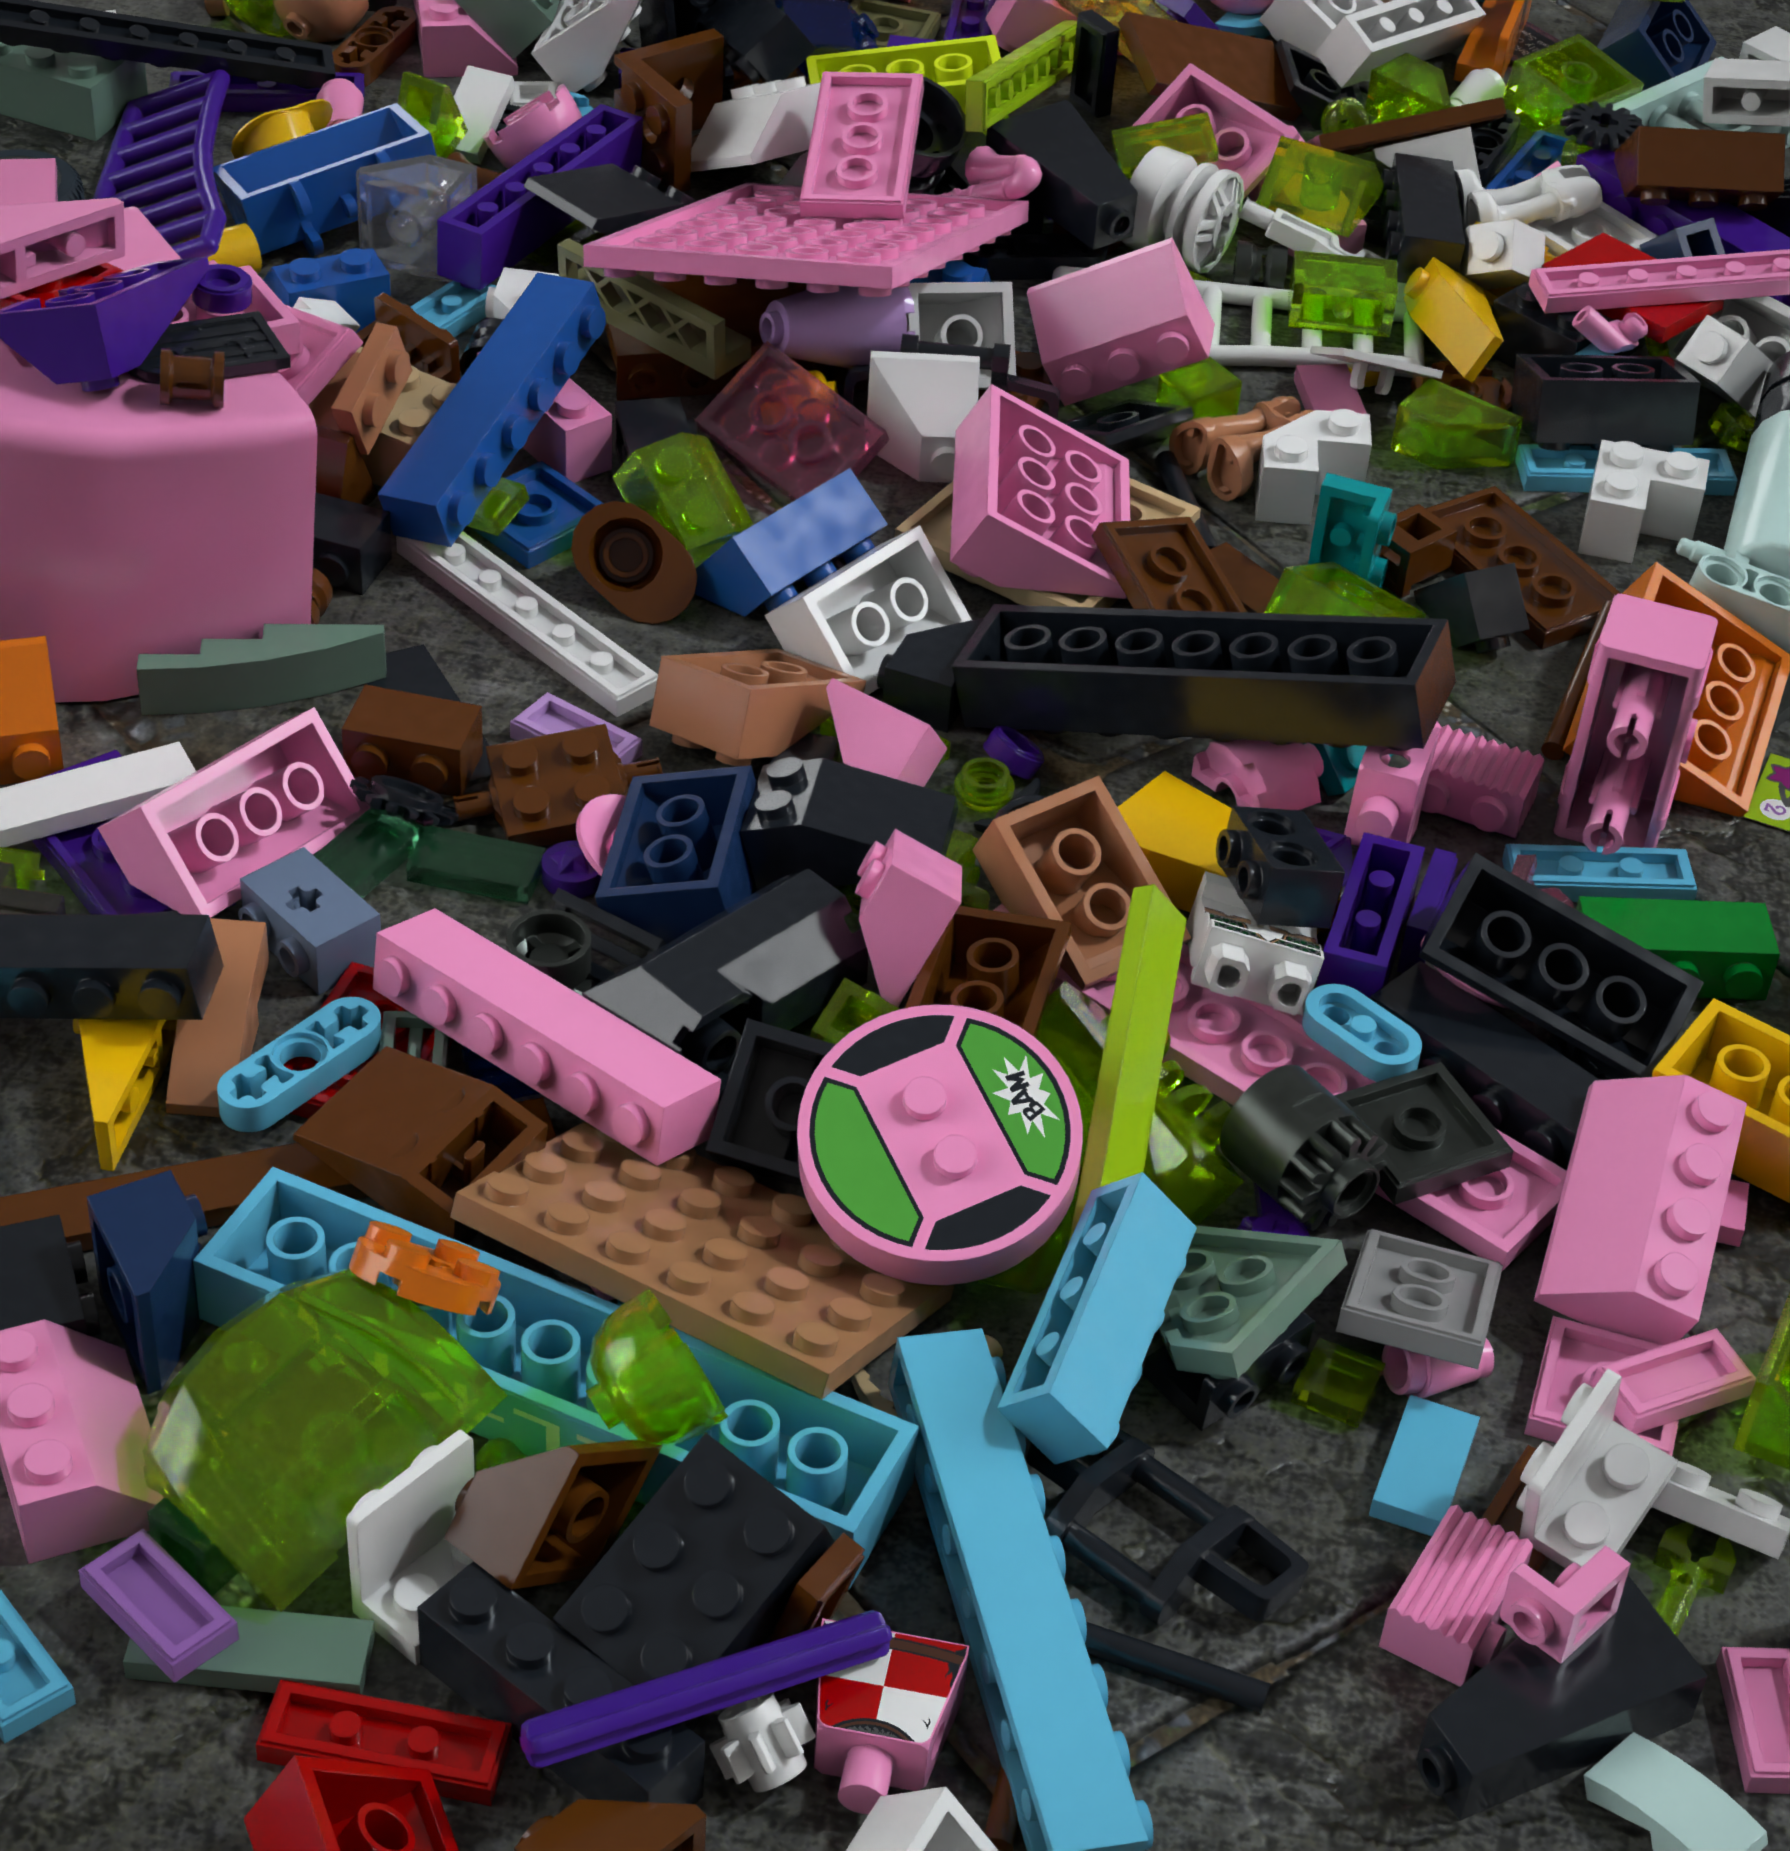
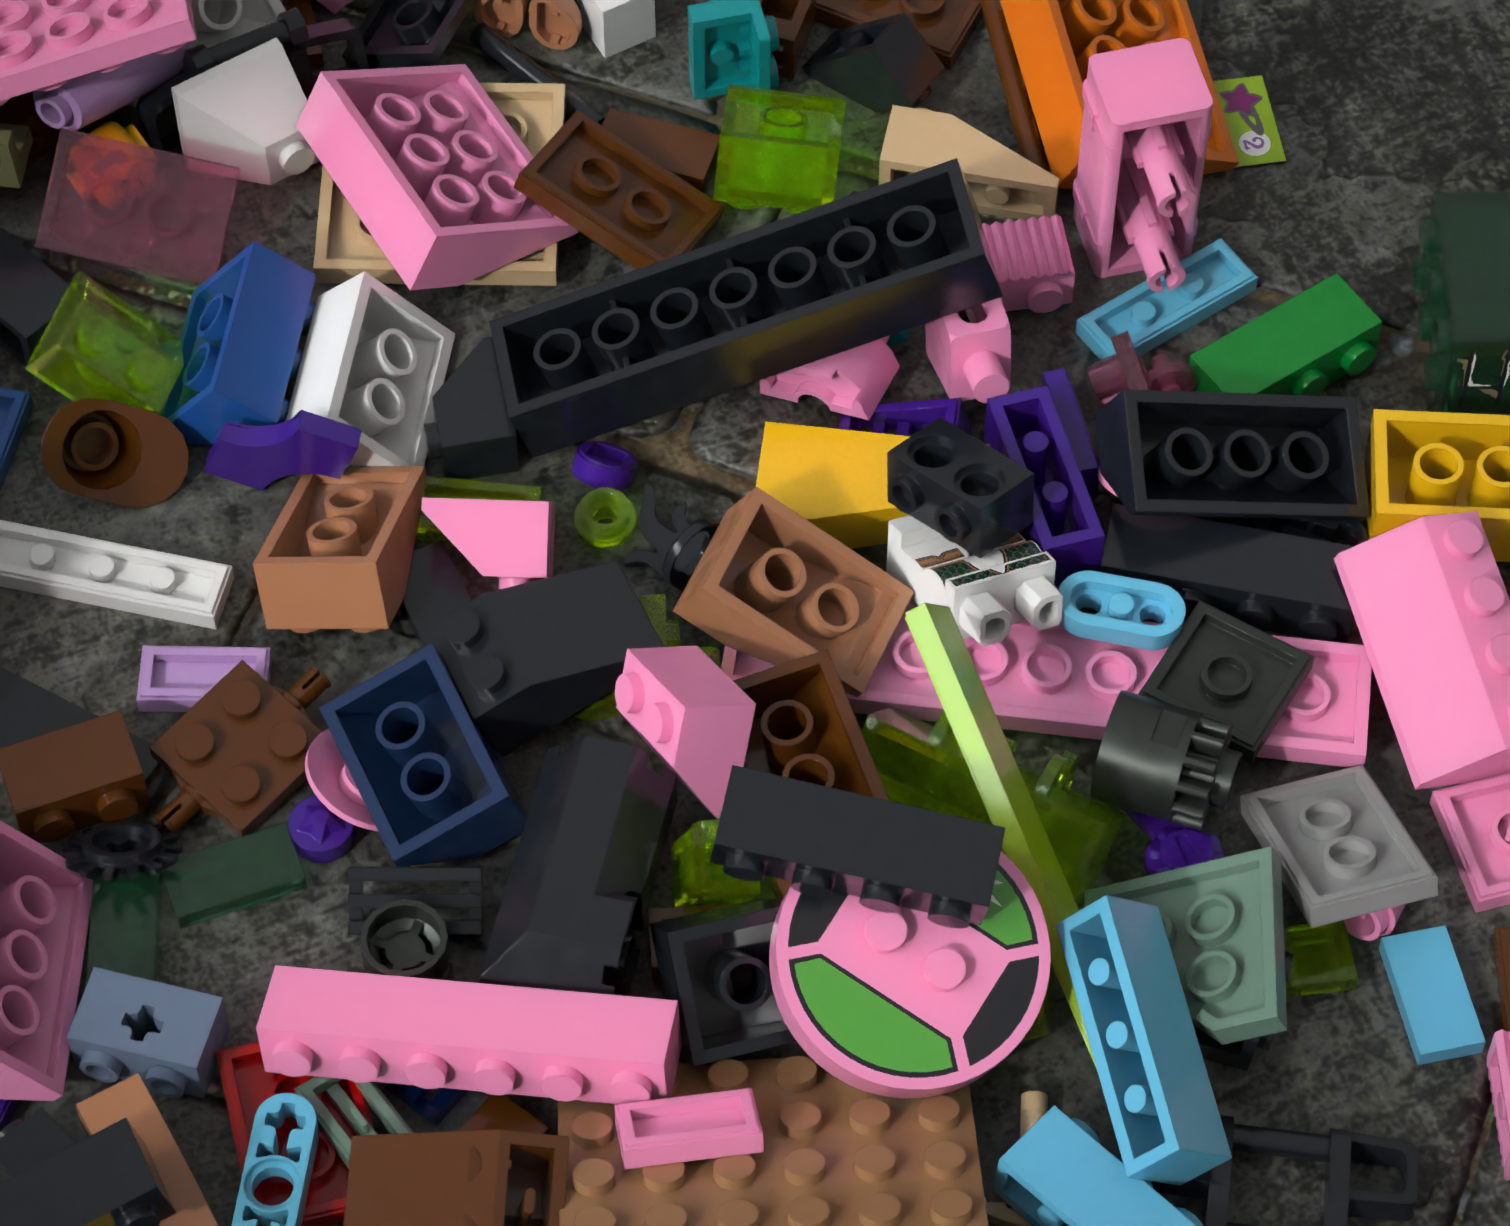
camera: 30 degrees left, 15 degrees up
(653, 1176) = (688, 1128): none -> bright pink tile
(763, 614) = (293, 447): none -> dark purple tile
(940, 1008) = (857, 847): none -> black brick
(1498, 702) = (996, 175): none -> tan slope

